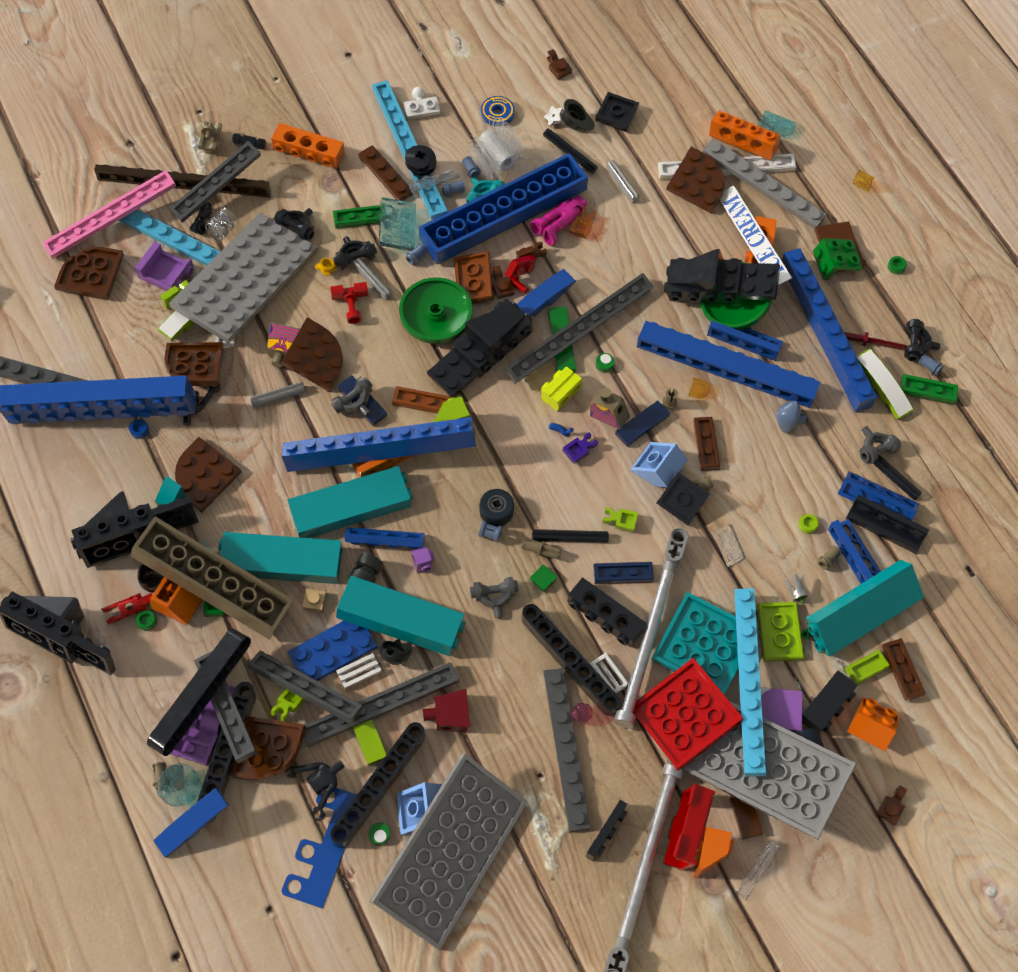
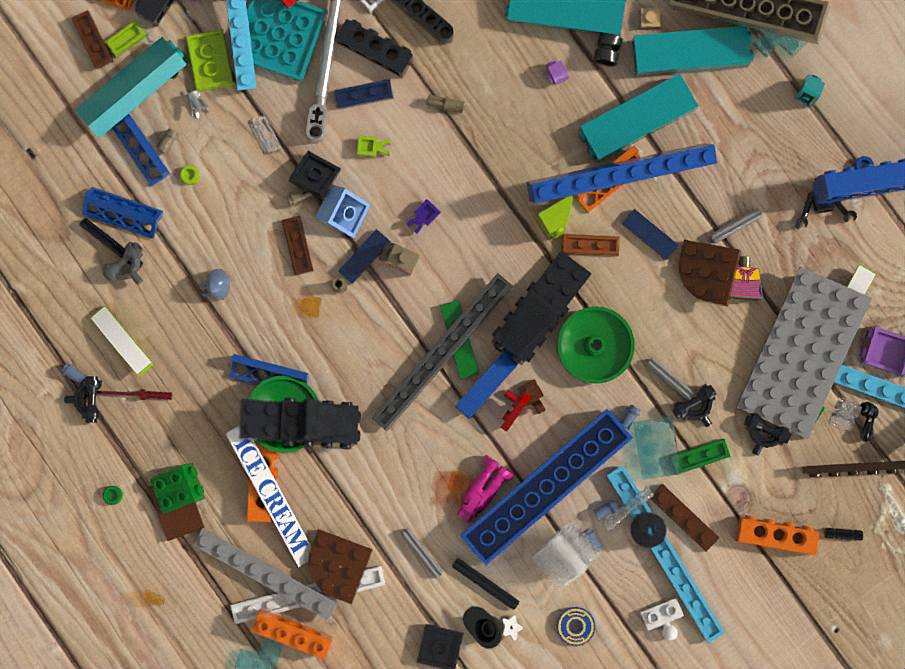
camera: 175 degrees right, 20 degrees up
(120, 523) = (847, 49): black wedge -> none
(167, 296) = (871, 316): lime plate -> none
(195, 360) = (828, 242): reddish brown plate -> none
(204, 473) = (787, 128): reddish brown plate -> none
(210, 137) = (887, 527): dark tan hips -> none
(215, 182) = (864, 458): dark grey plate -> none
(326, 266) = (727, 383): yellow plate -> none
(350, 295) = (689, 353): red bar -> none
(362, 388) = (669, 222): dark grey piece -> none
(384, 537) = (597, 88): blue plate -> none
(475, 276) = (562, 397): dark orange tile -> none
(479, 186) = (578, 498): teal piece -> none
(490, 531) = (497, 112): sand blue bush -> none
(500, 513) = (490, 141): black wheel -> none
(507, 588) = (495, 49): dark grey piece -> none
(532, 250) = (513, 434): reddish brown plate -> none
(543, 578) = (439, 75): green tile -> none
(557, 427) = (446, 237): blue piece -> none
(561, 388) = (451, 279): neon yellow brick -> none
(570, 535) = (419, 122): black axle -> none
(604, 362) = (411, 320): green tile -> none
(728, 364) = (284, 336): blue brick -> none
(829, 331) = (183, 396): blue brick -> none
(888, 526) = (113, 183): black fence -> none
(929, 389) = (75, 344): green plate -> none

